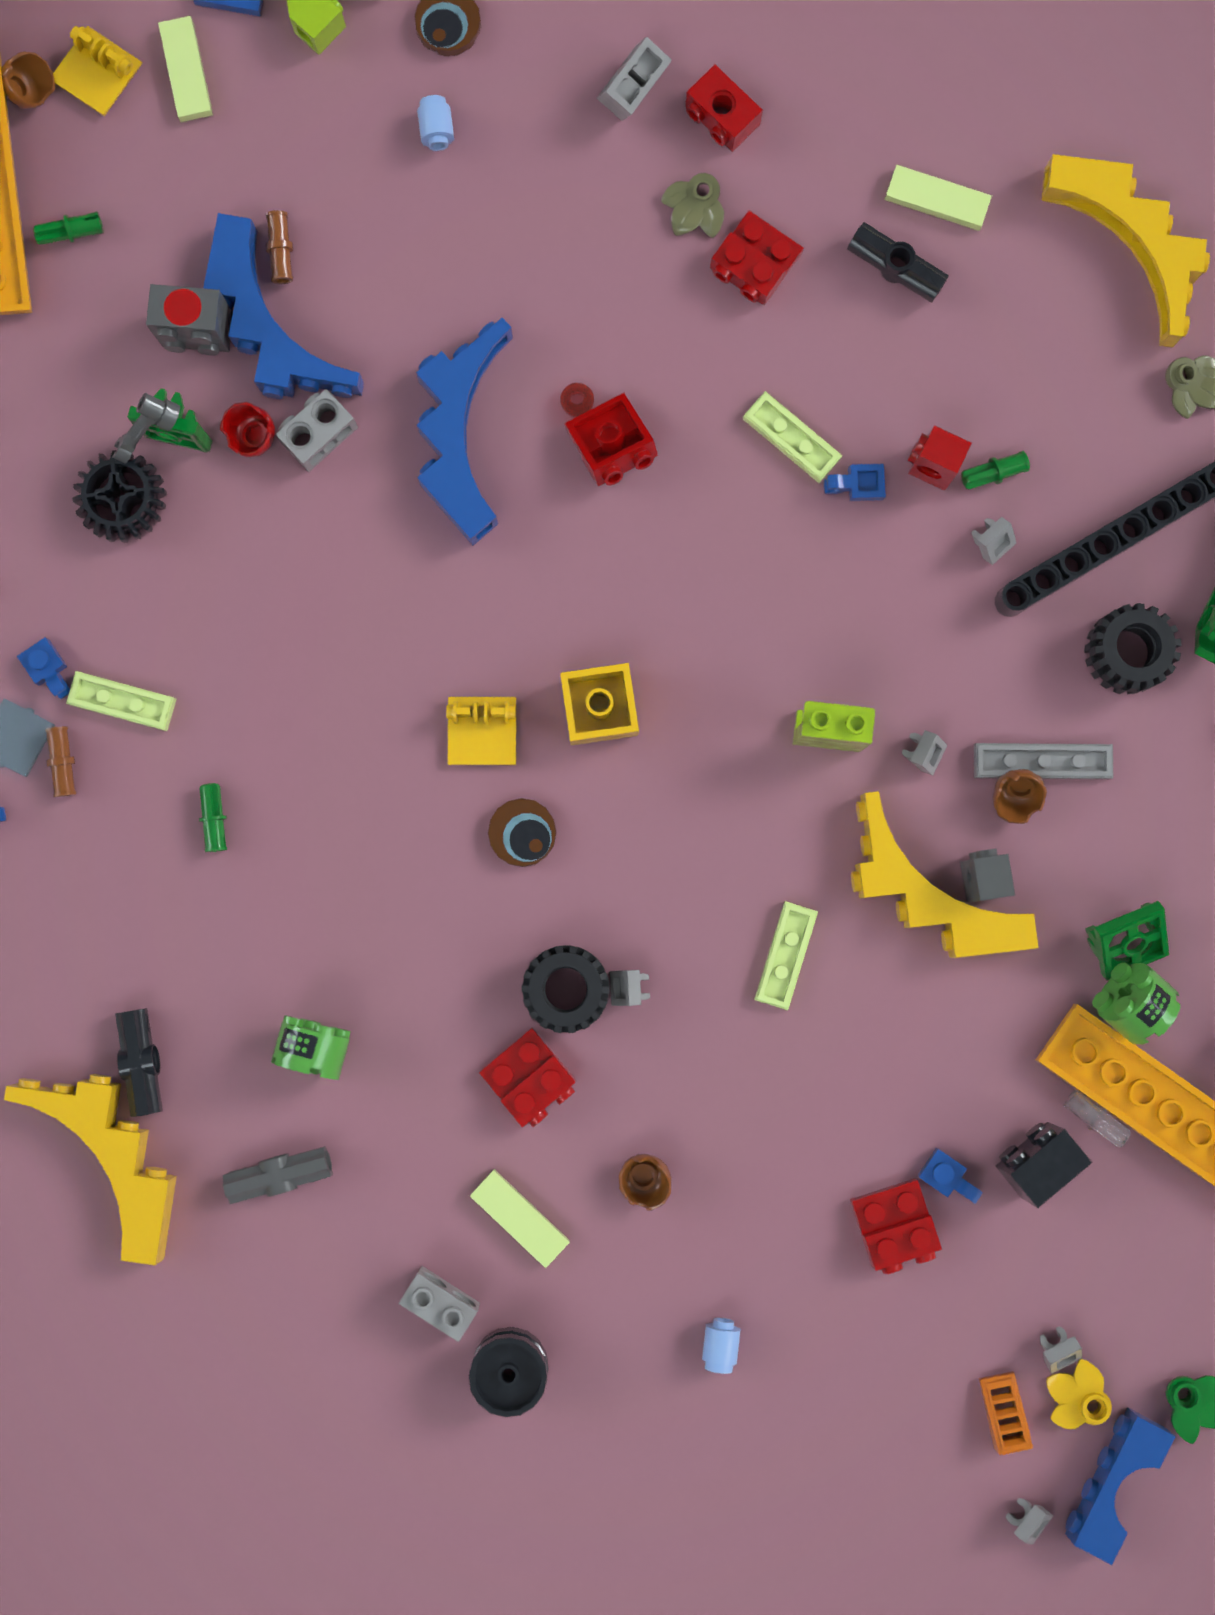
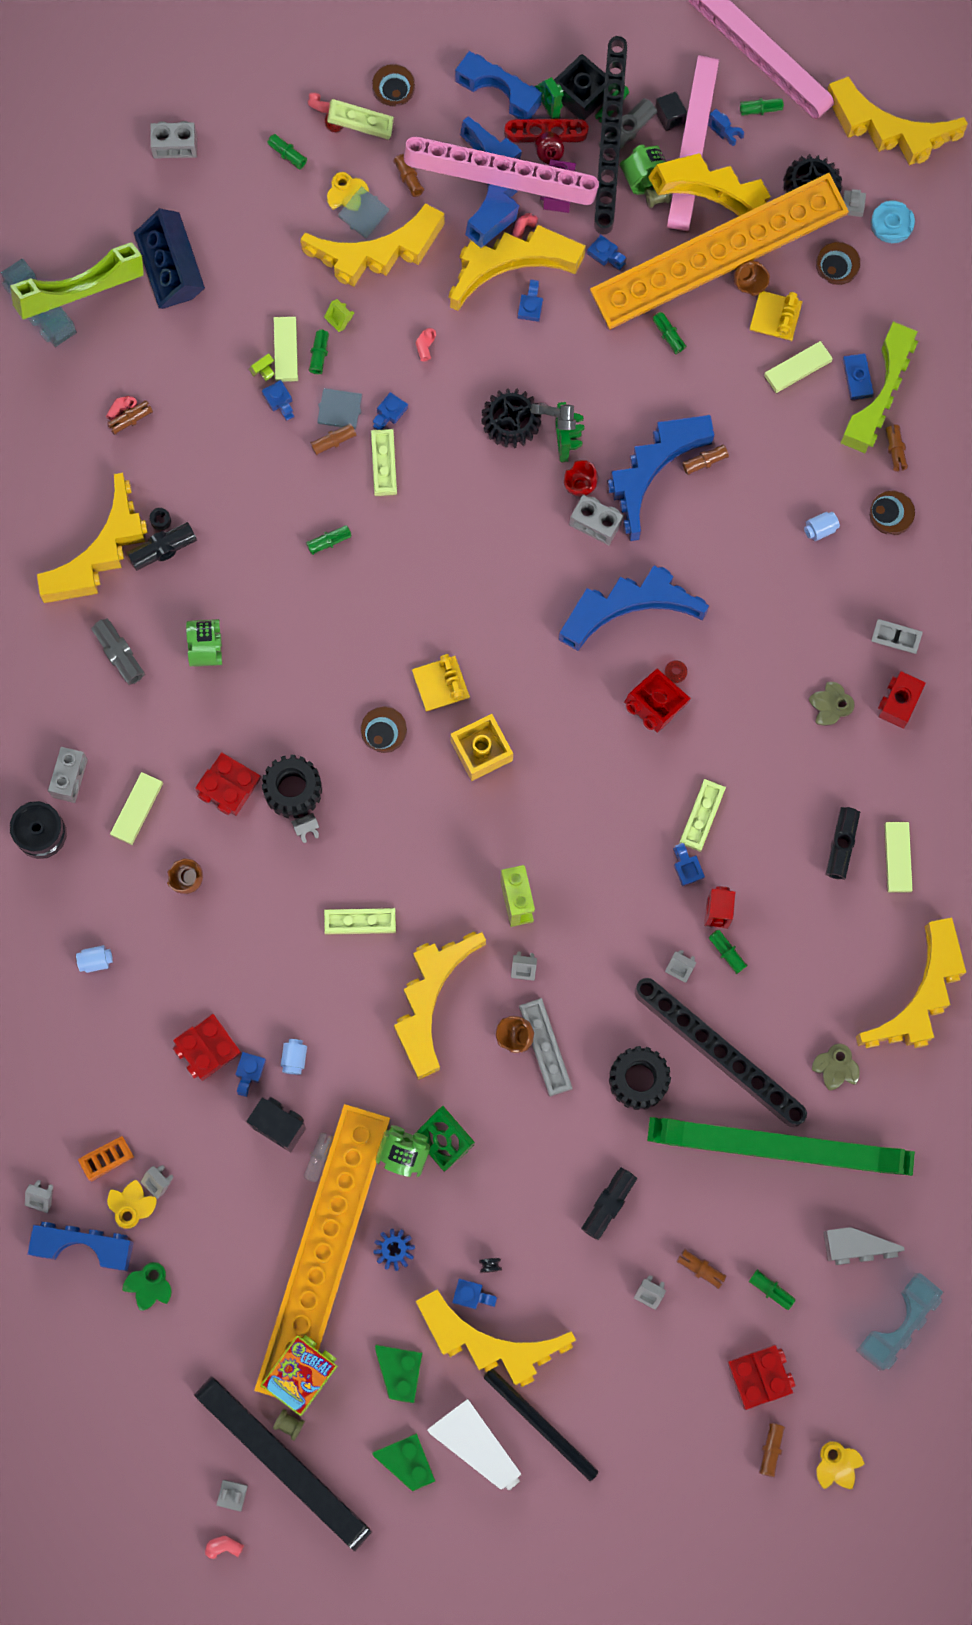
camera: 70 degrees right, 10 degrees down
(91, 1061) = (167, 520): none -> black bush
(189, 319) = (636, 419): dark grey brick -> none
(755, 258) = (811, 753): red plate -> none
(950, 1109) = (293, 1057): none -> light blue brick
(987, 876) = (453, 1027): dark grey brick -> none

